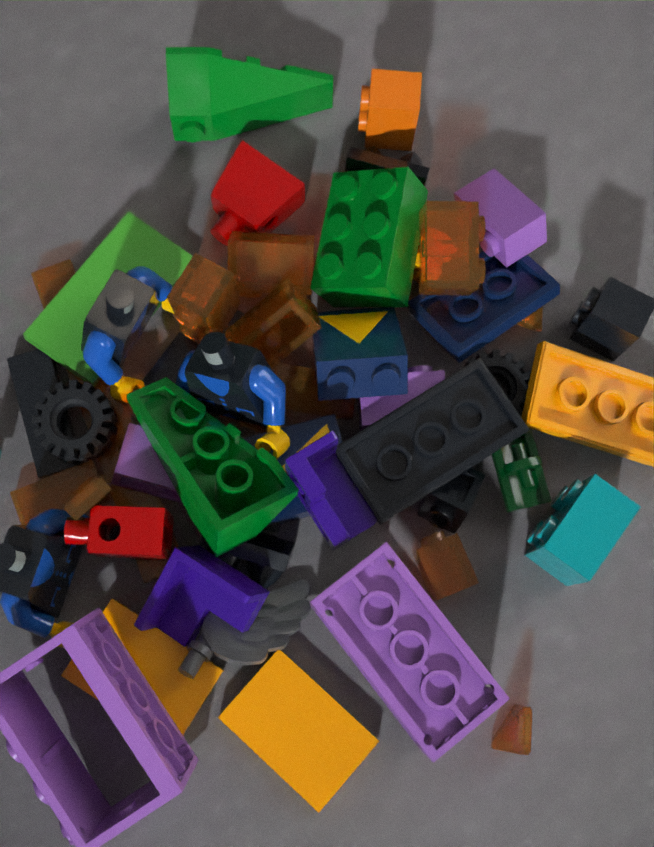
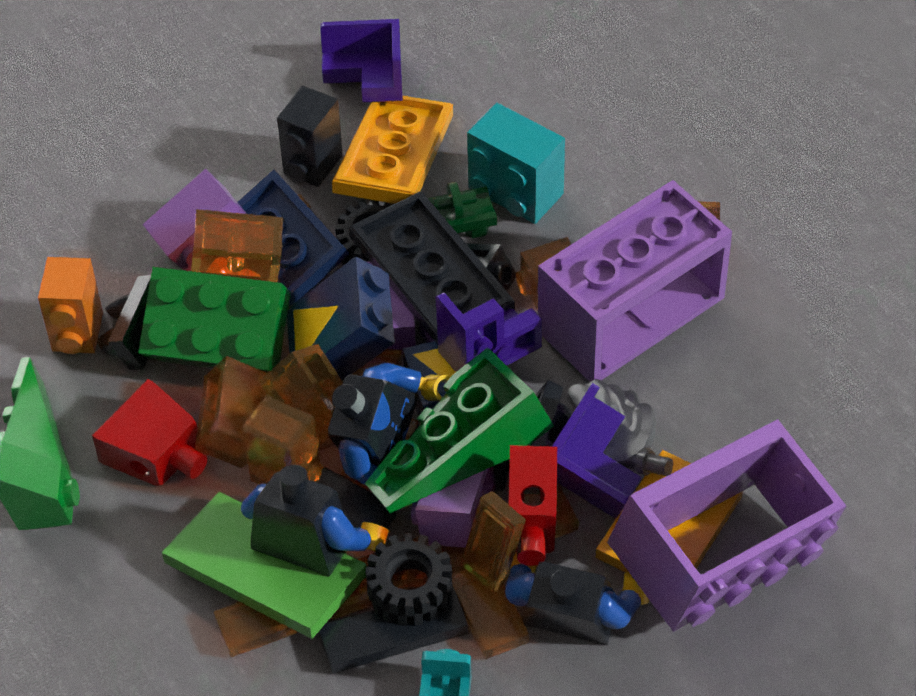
camera: 85 degrees left, 25 degrees down
(298, 730) = (714, 391): light orange tile -> none

